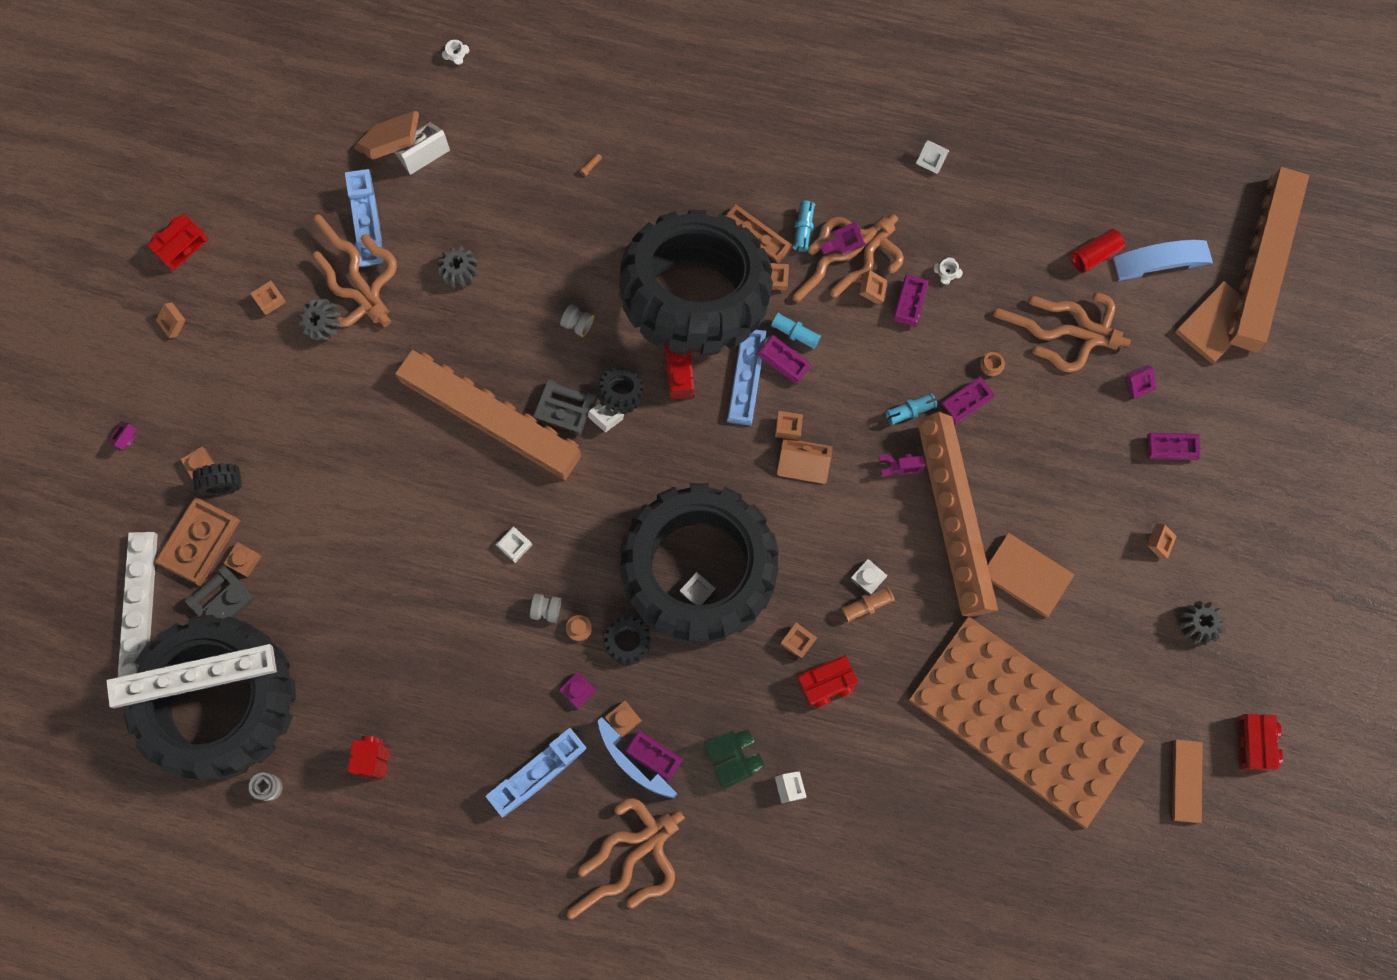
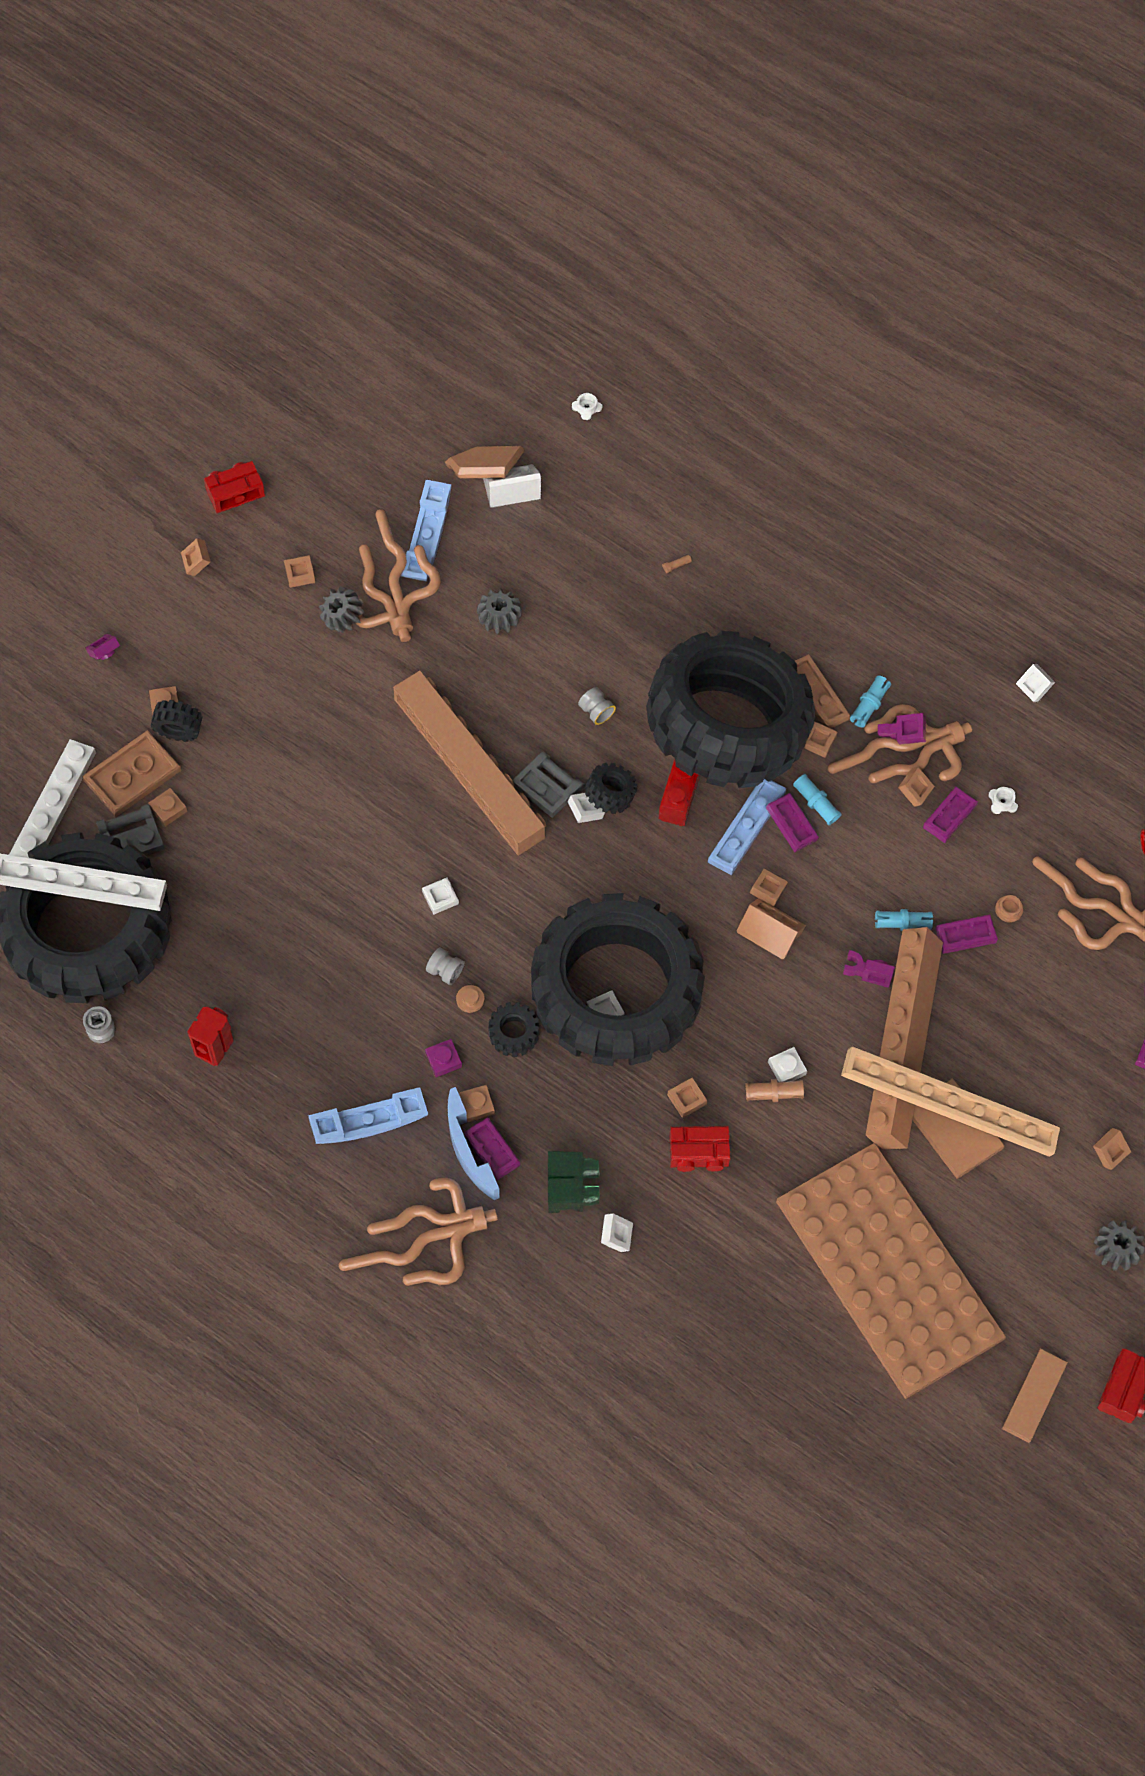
camera: 20 degrees right, 10 degrees down
(1019, 558) = (950, 1101): none -> light nougat plate

